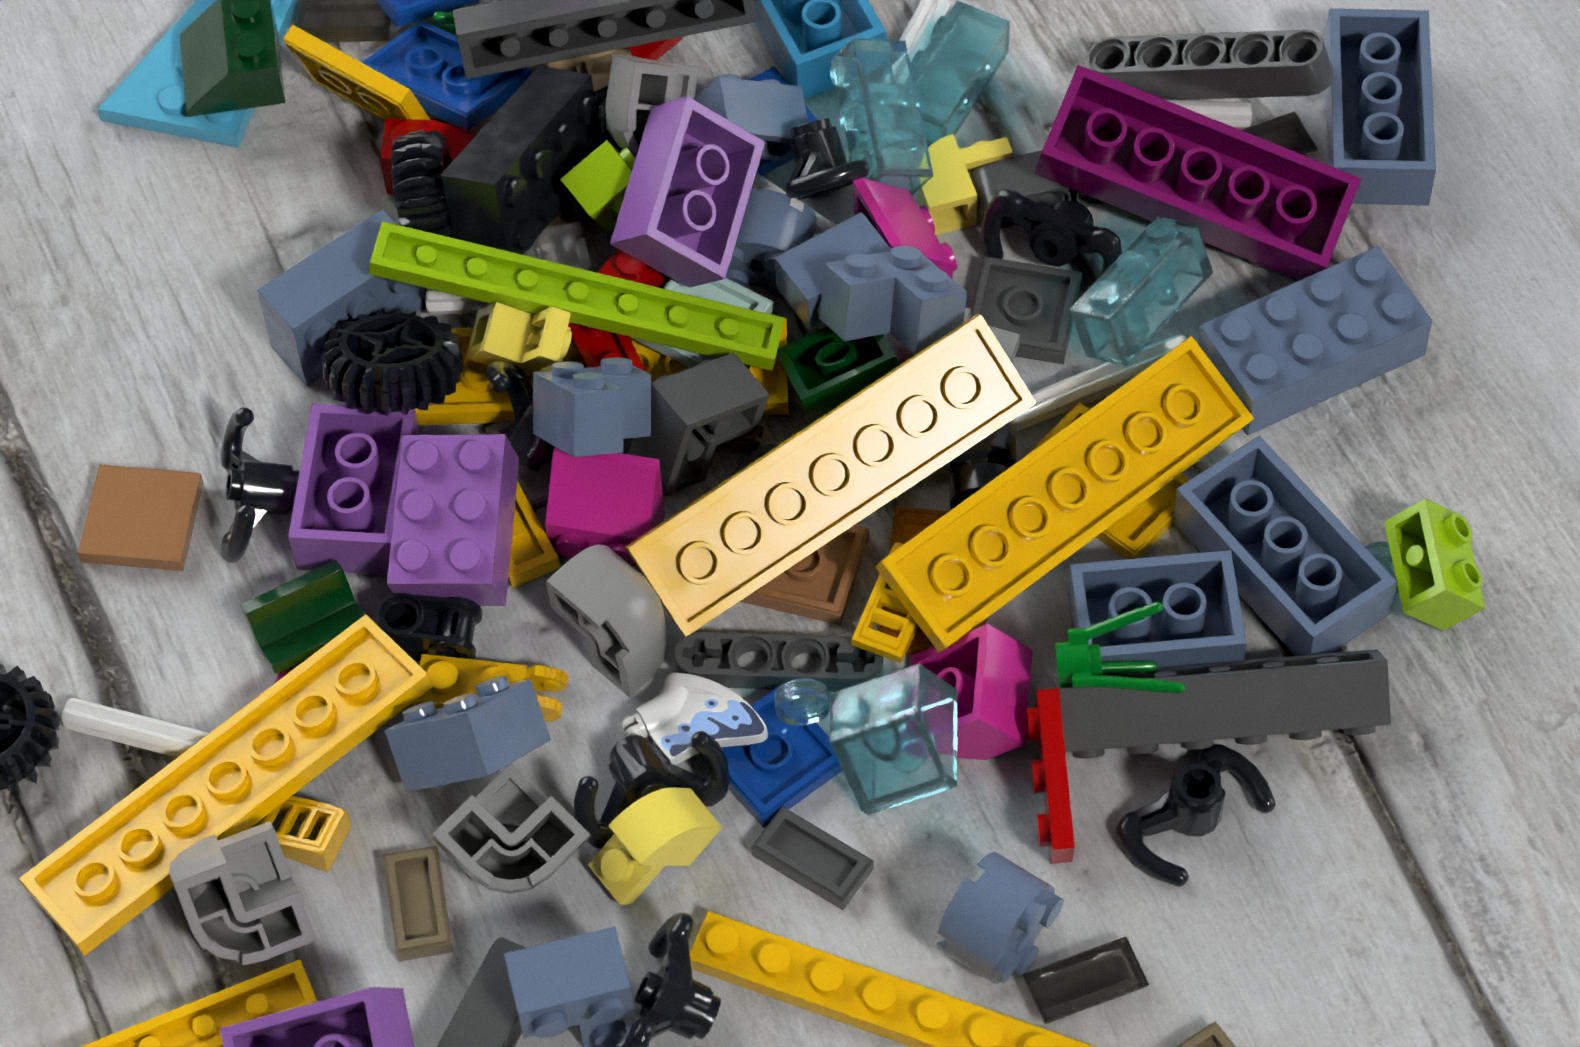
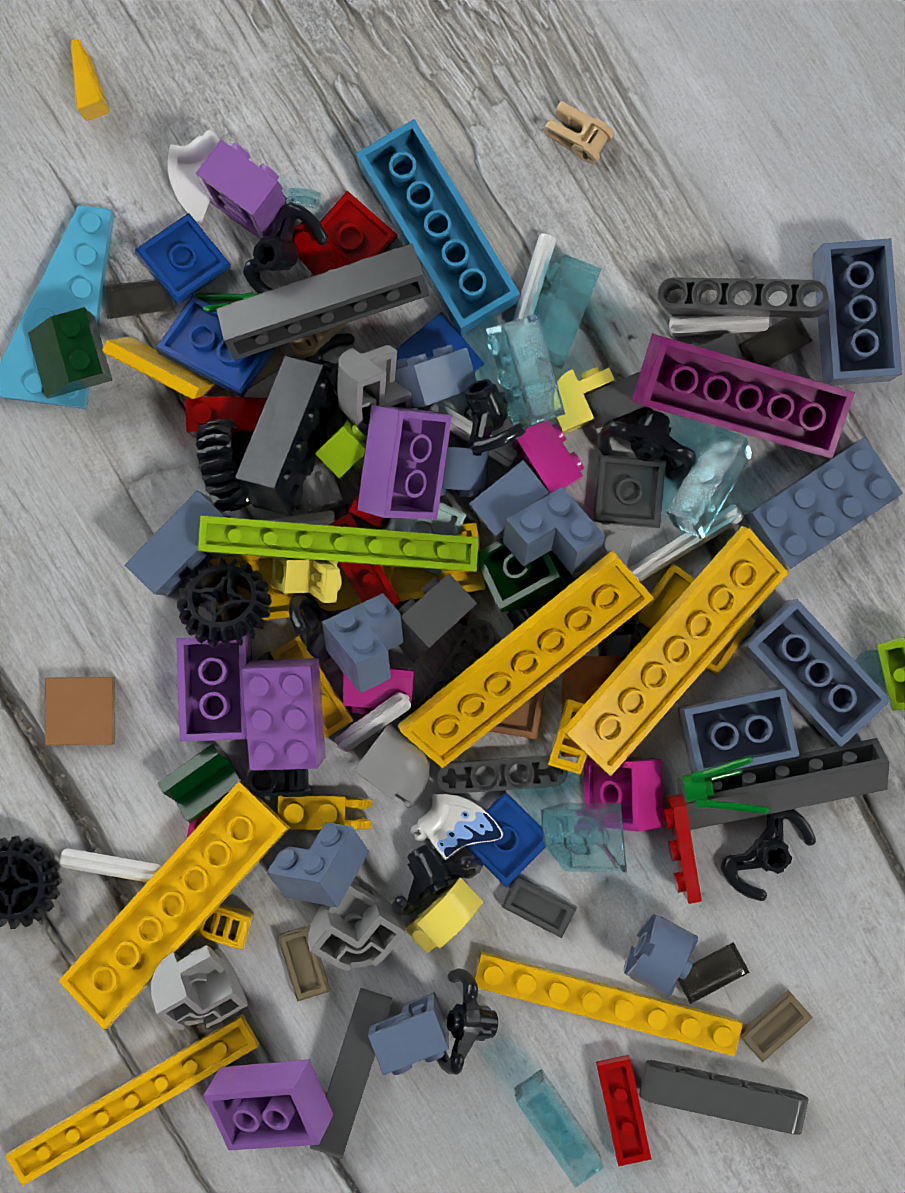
camera: 10 degrees left, 30 degrees up
(252, 485) = (150, 689): black piece -> none
(606, 530) = (373, 722): none -> white axle
(802, 702) = (523, 815): clear light blue tile -> none

